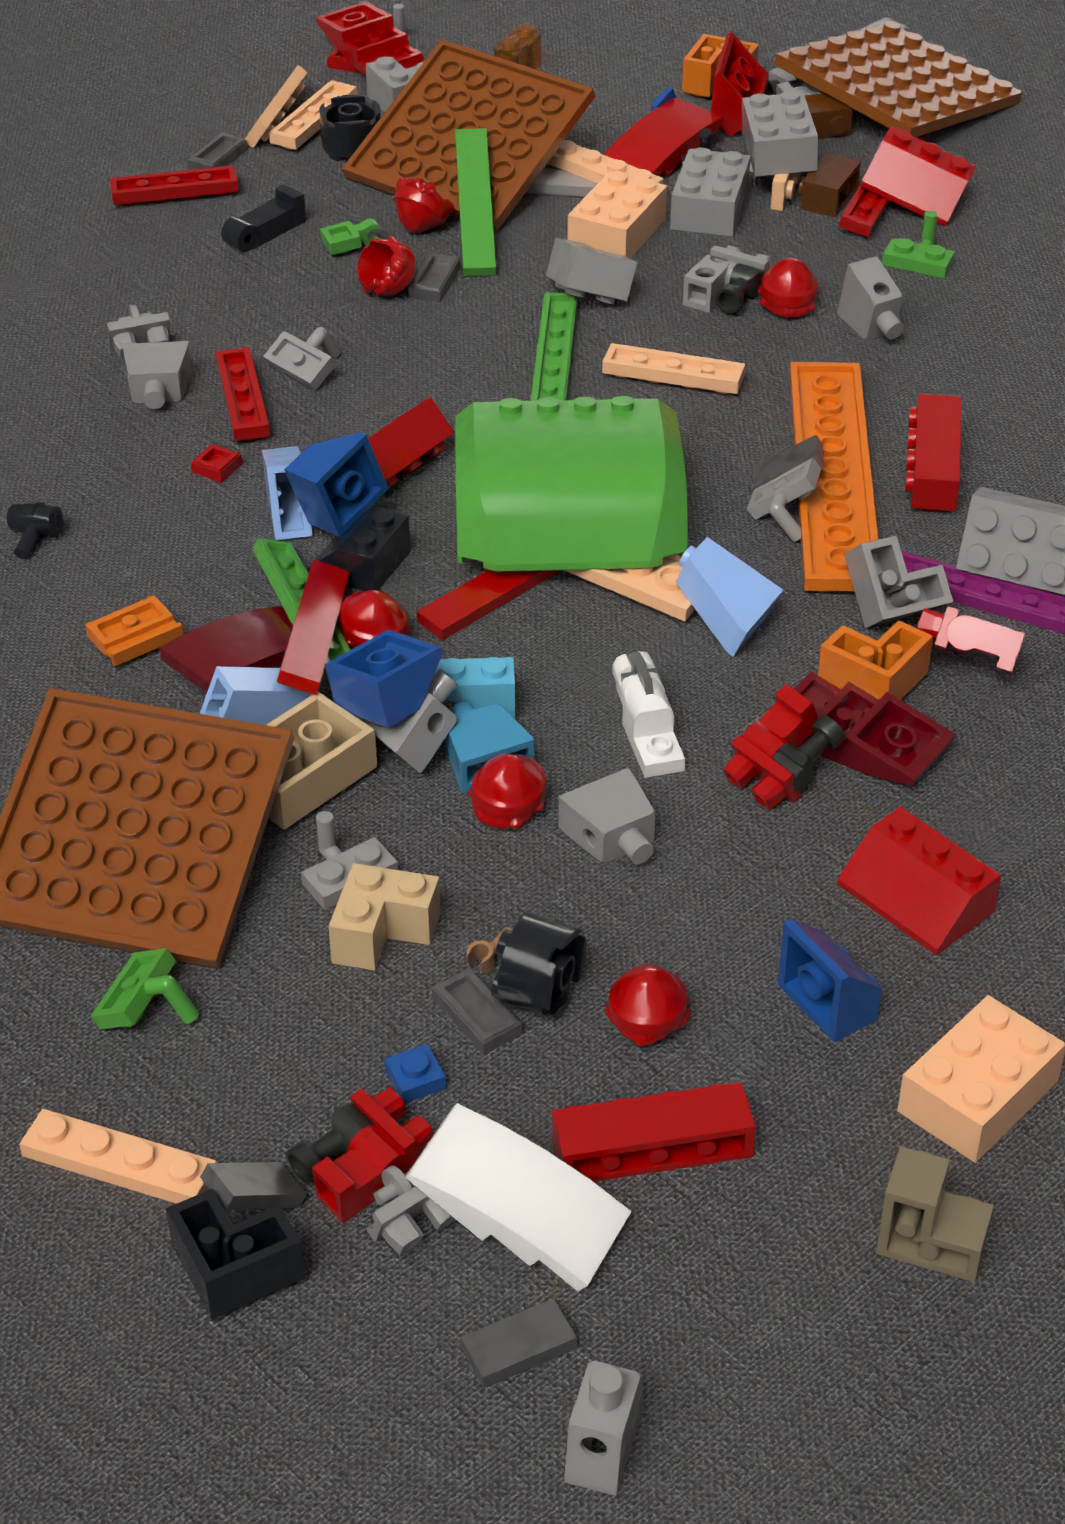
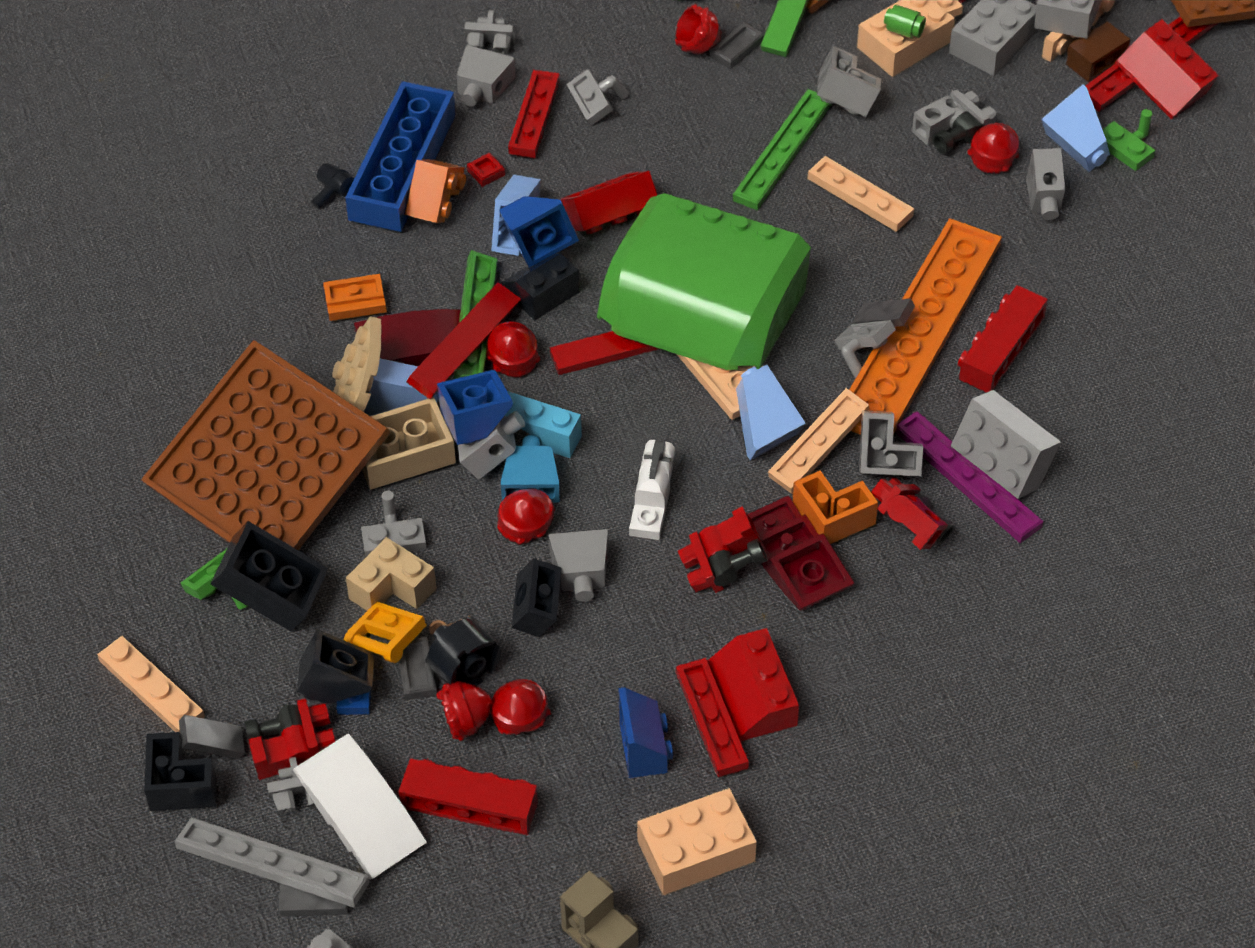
camera: 25 degrees right, 10 degrees up
(107, 472) = (409, 132): none -> blue brick
(172, 490) = (431, 189): none -> orange brick
(203, 673) = (359, 365): none -> tan plate
(224, 957) = (269, 576): none -> black brick
(376, 1042) = (334, 669): none -> black slope
(413, 966) = (388, 623): none -> light orange plate
(433, 1316) = (272, 862): none -> light grey tile
(582, 1026) = (464, 708): none -> red hair
(588, 871) = (536, 597): none -> black brick
(624, 192) = (905, 21): none -> bright green brick
(808, 605) = (818, 440): none -> light nougat plate
(863, 237) = (1078, 129): none -> light blue slope
(894, 934) = (712, 717): none -> red plate

